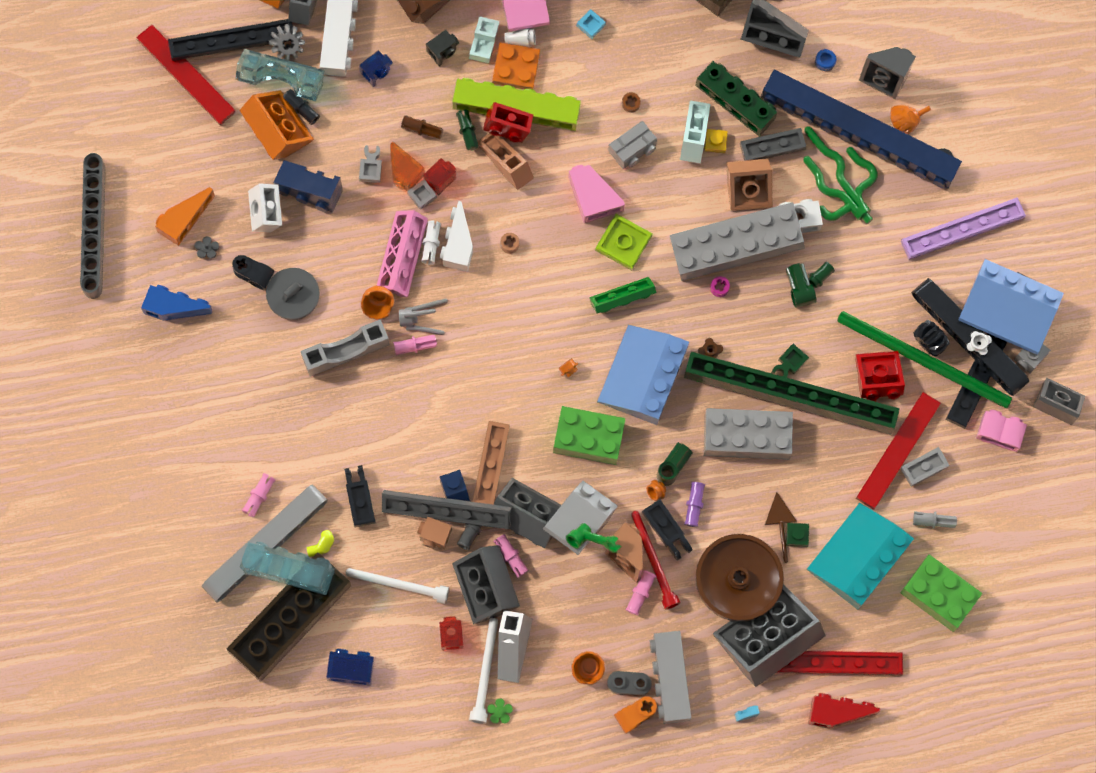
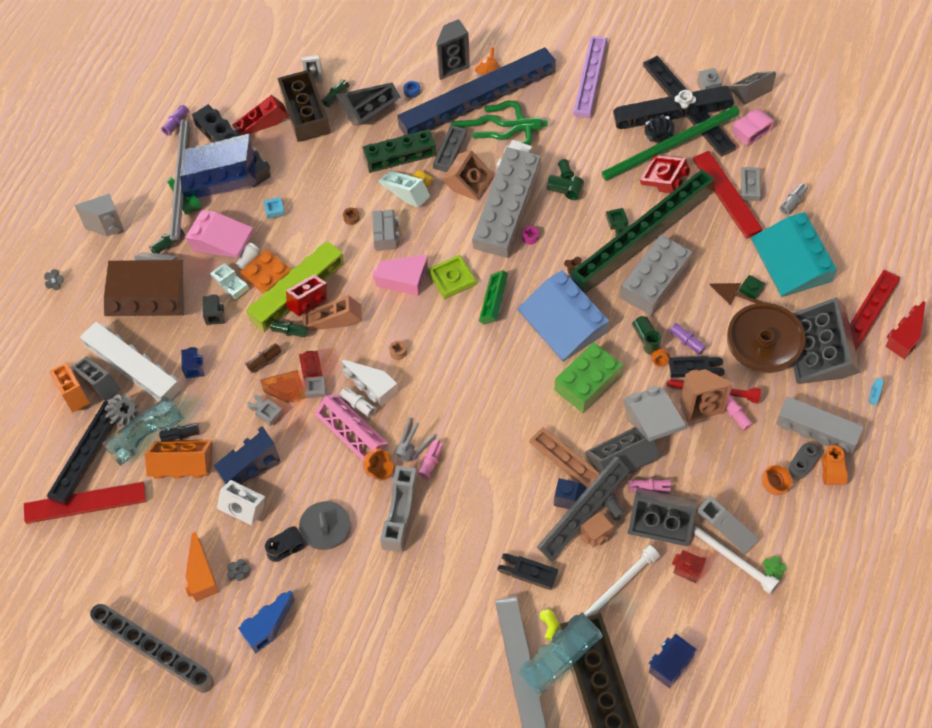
camera: 50 degrees left, 15 degrees down
(258, 495) = (475, 649): bright pink pin -> none
(568, 368) = (524, 363): orange plate -> none
(583, 533) = (673, 413): green brick -> none
(941, 593) = (853, 221): bright green brick -> none
(1011, 306) = (669, 70): medium blue slope -> none

